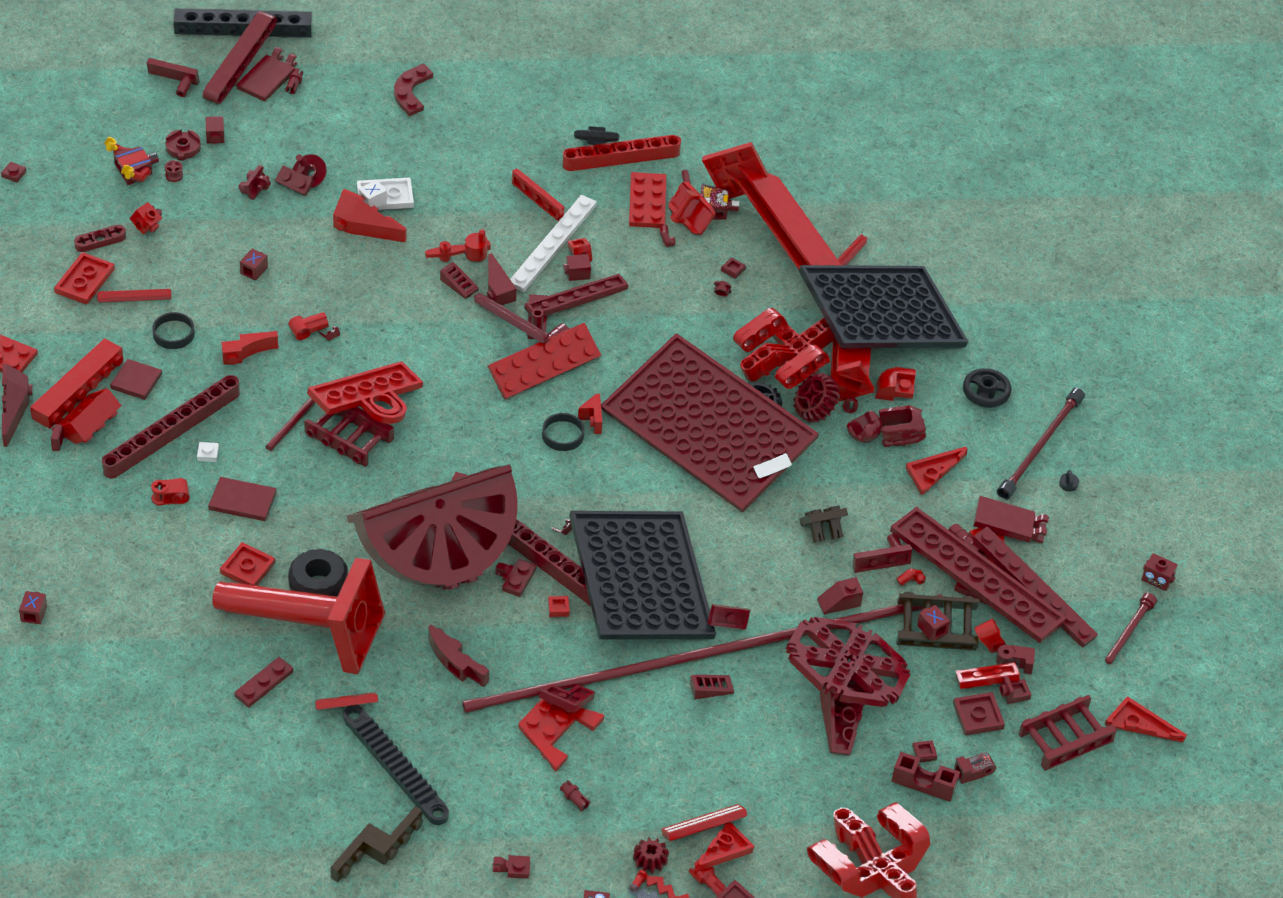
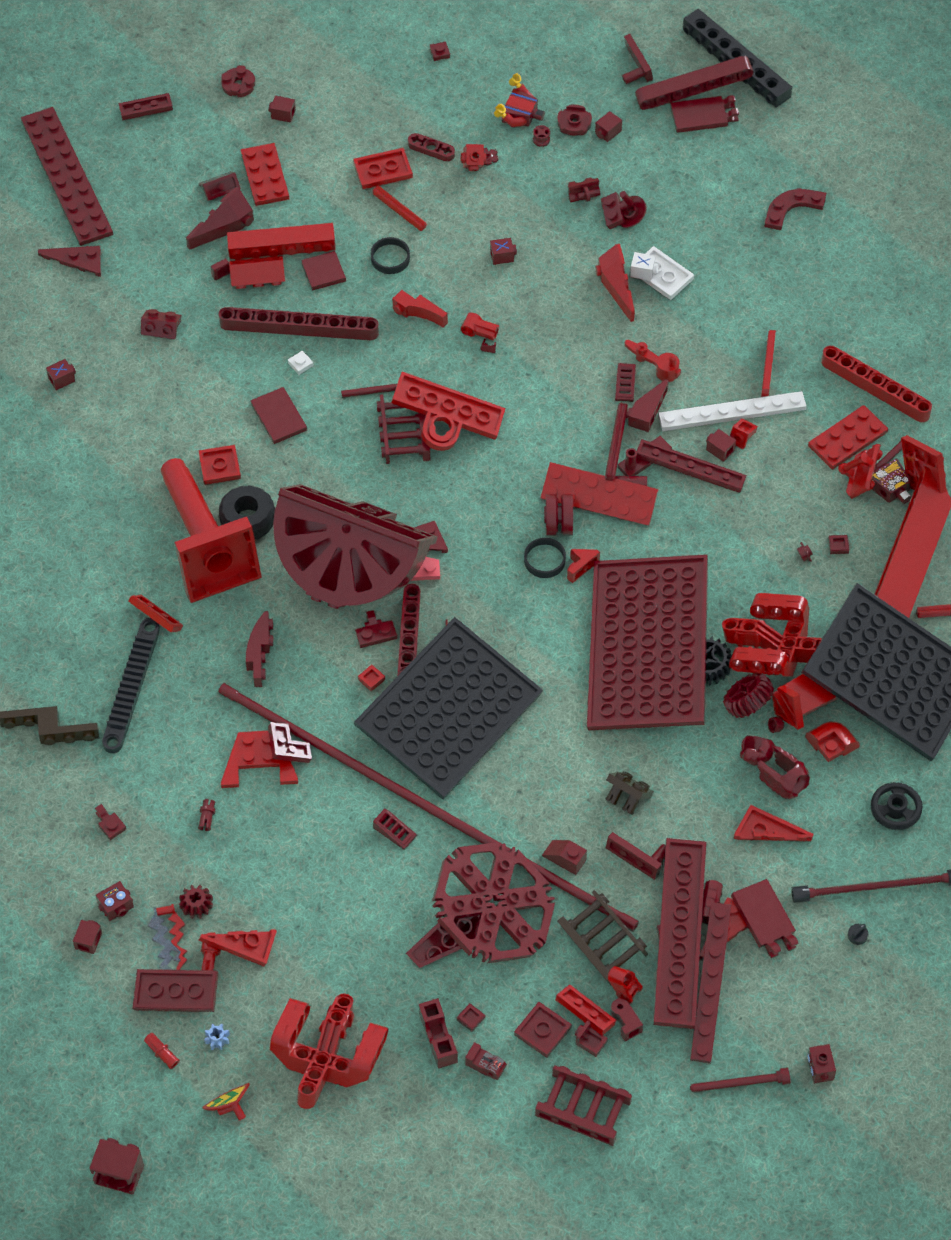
camera: 55 degrees right, 10 degrees up
(62, 511) = (160, 324): none -> dark red bracket
(172, 491) = (239, 369): red piece -> none
(263, 682) = (129, 553): dark red plate -> none
(295, 79) = (715, 132): dark red pin -> none
(541, 393) = (559, 515): none -> dark red wheel
(596, 135) = (869, 354): black wheel -> none
(664, 233) = (820, 474): dark red arm -> none
(704, 822) = (259, 915): red tile -> none
(728, 616) = (465, 793): dark red plate -> none
(772, 466) = (643, 715): white sticker -> none
(913, 575) = (639, 887): red arm -> none
(933, 623) = (588, 933): dark red brick -> none
(1138, 719) = (648, 1146): red wing -> none

